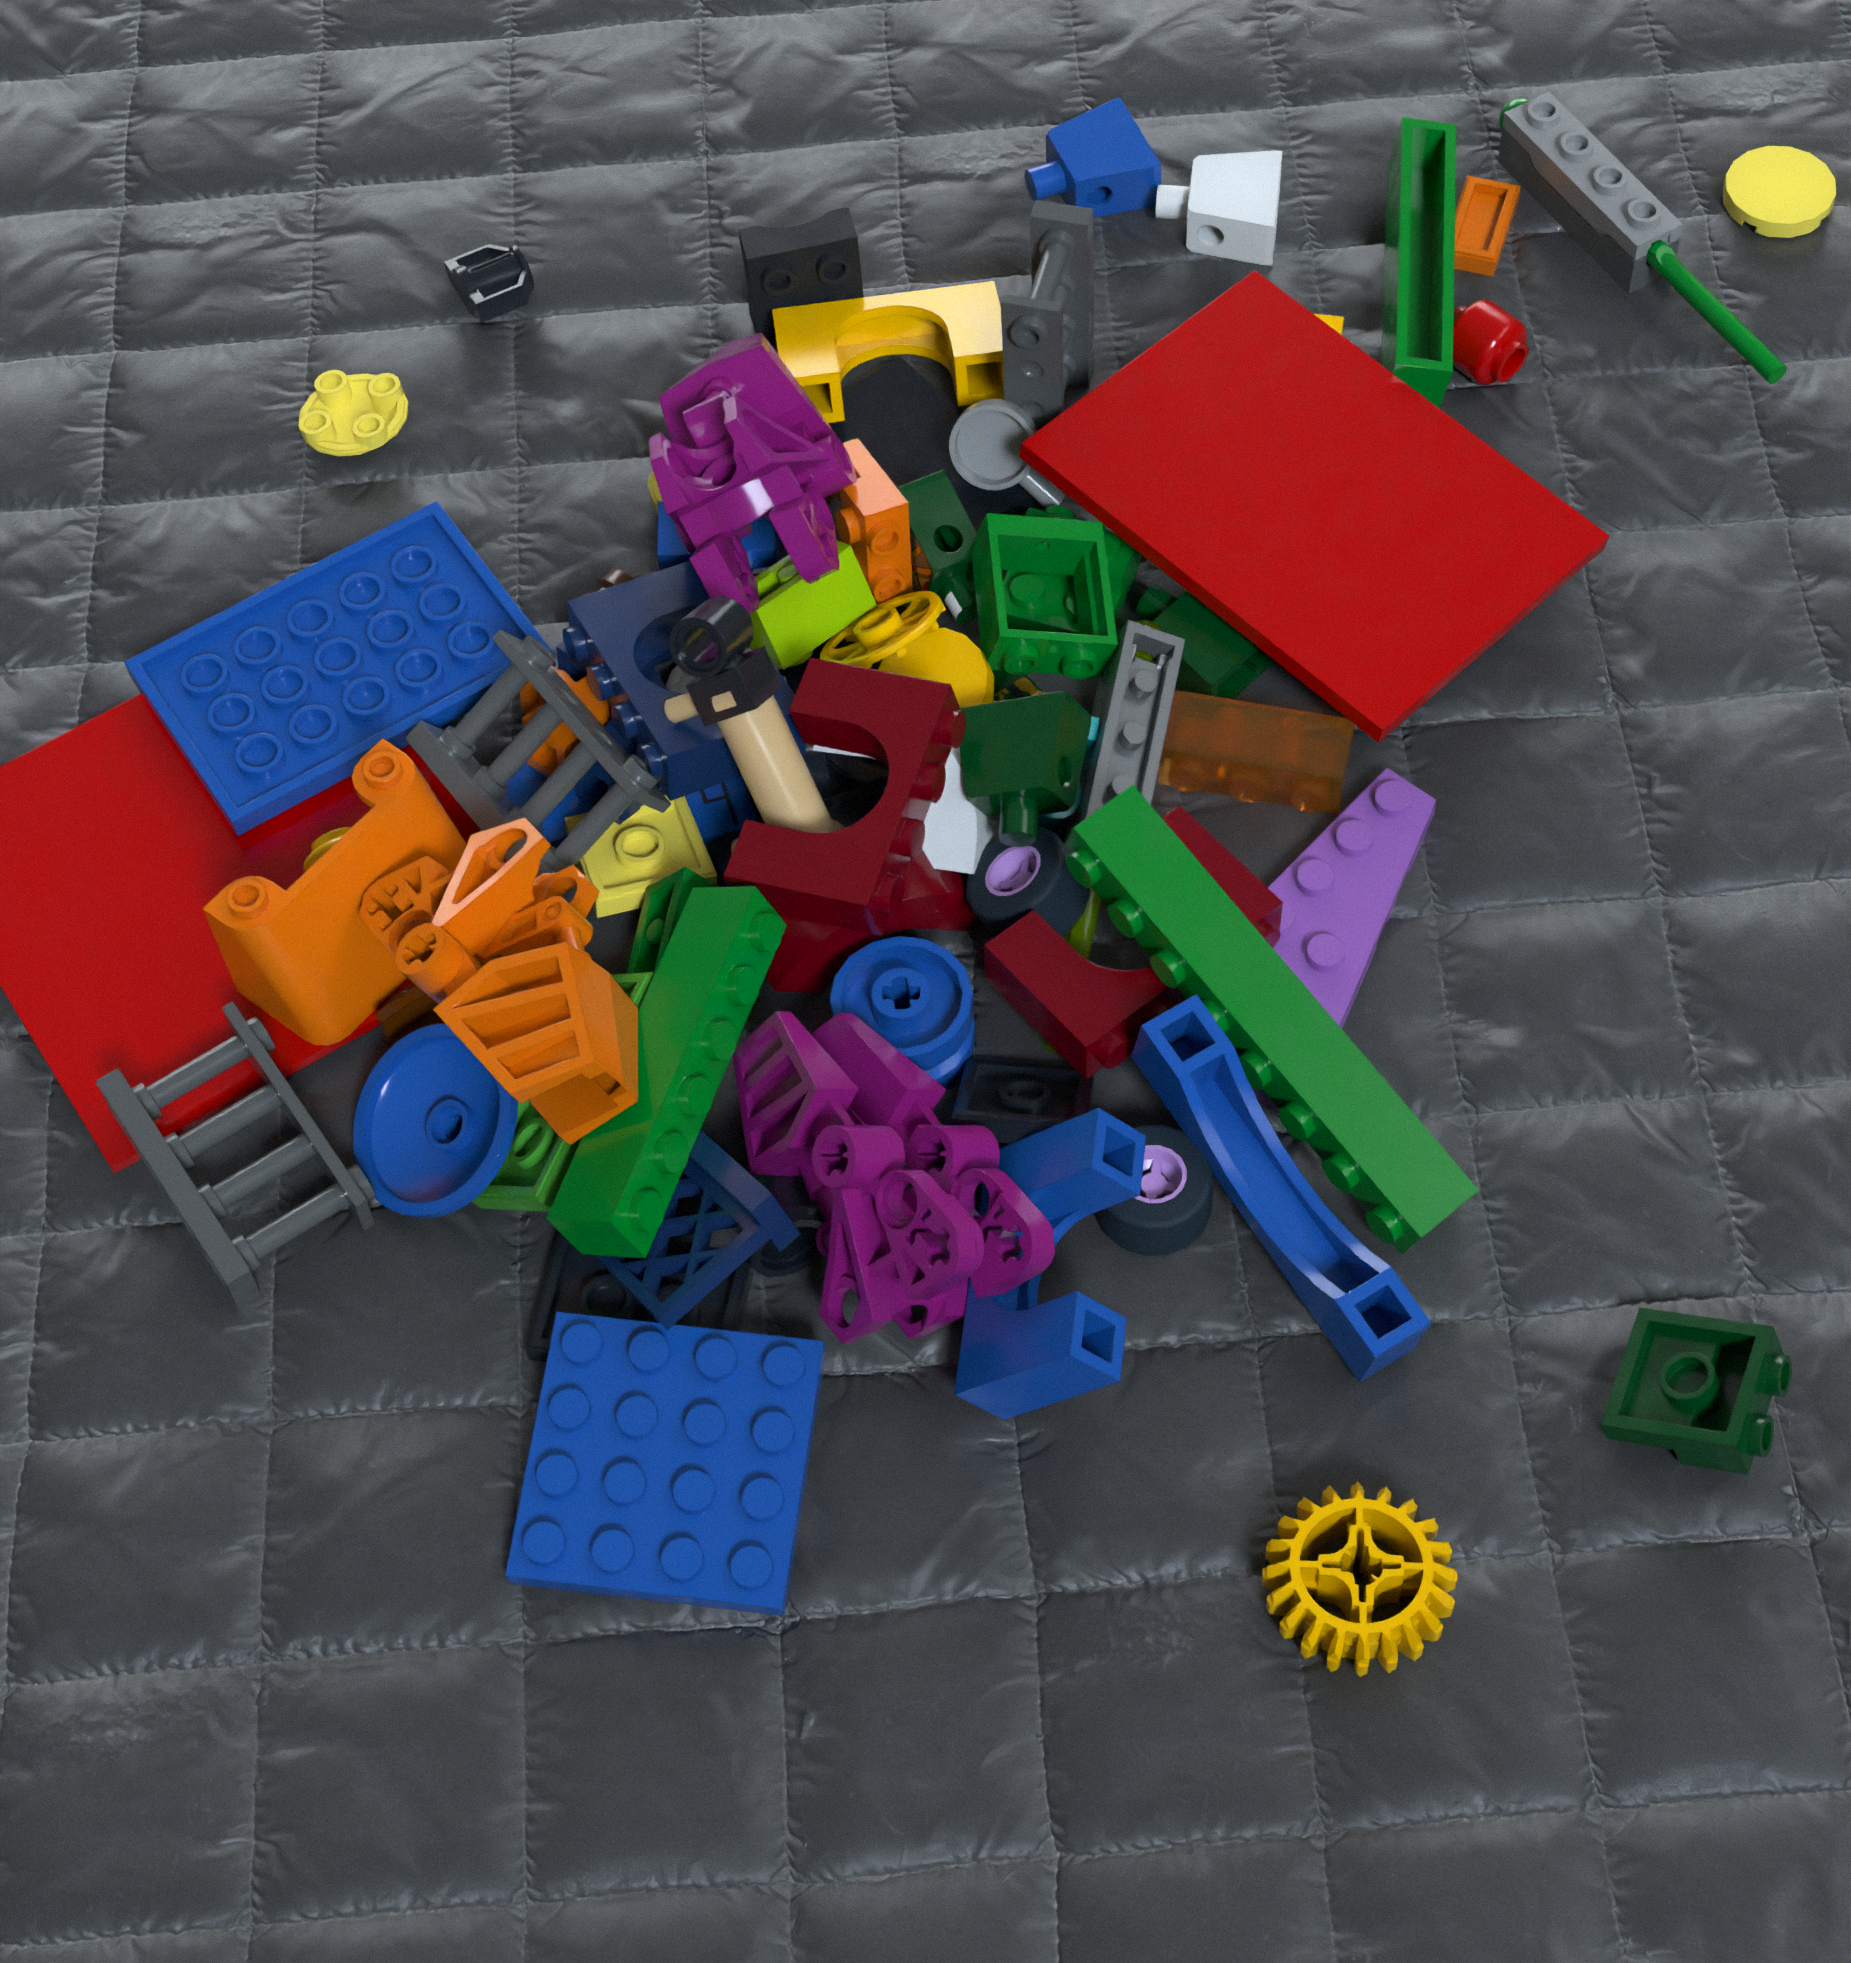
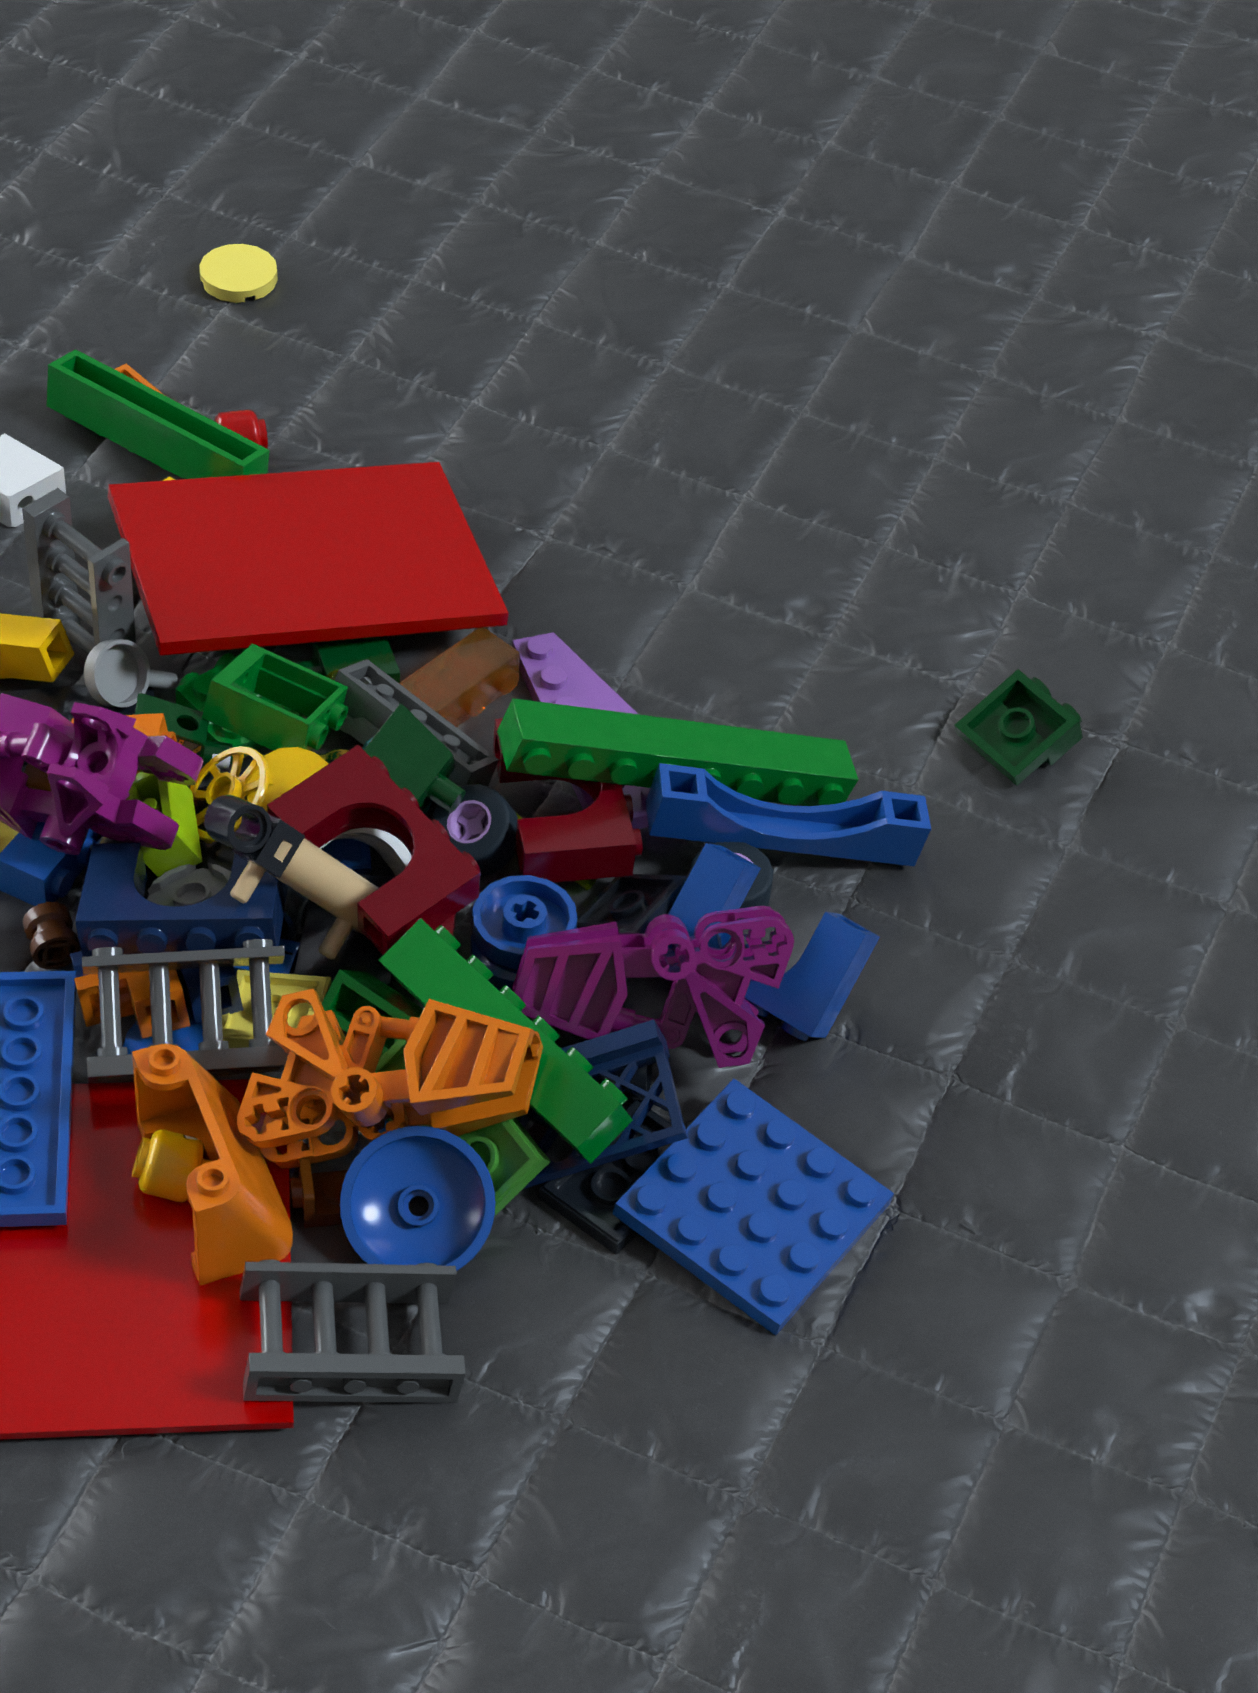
camera: 70 degrees left, 10 degrees down
(1333, 1580) = (1044, 922): yellow gear -> none
(1611, 213) = (190, 336): piece -> none

